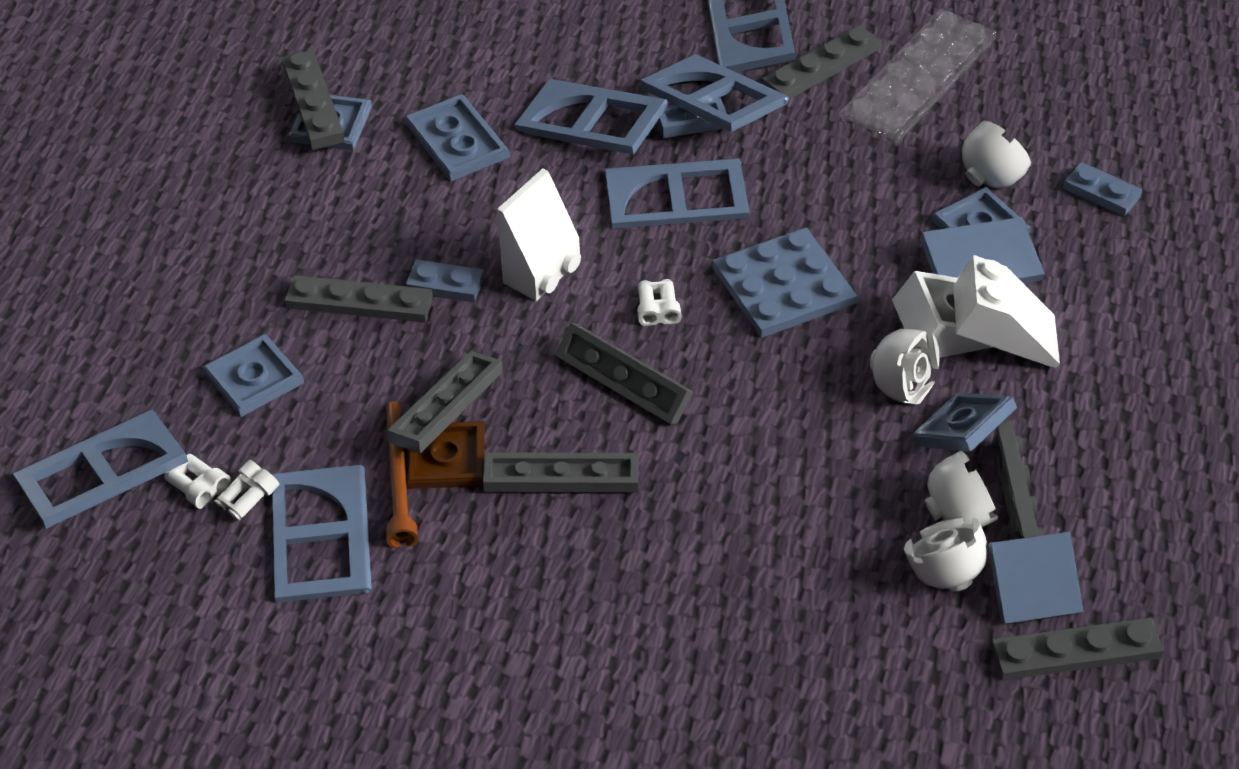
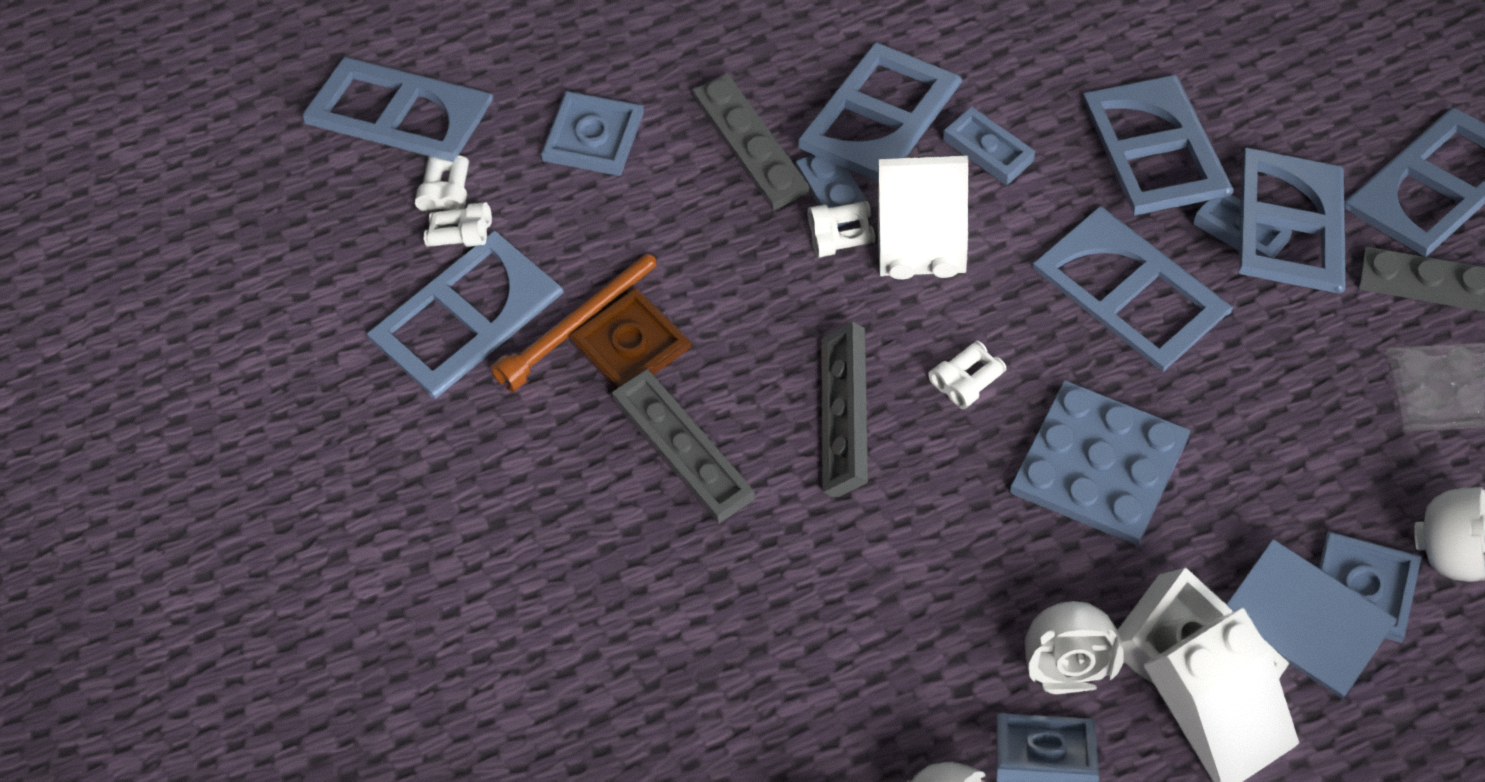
camera: 55 degrees right, 10 degrees up
(444, 402) = (677, 294): dark grey plate -> none
(454, 239) = (865, 155): none -> sand blue window
(457, 137) = (1022, 62): sand blue tile -> none
(476, 299) = (825, 232): none -> white piece
(496, 187) = (989, 145): none -> sand blue plate

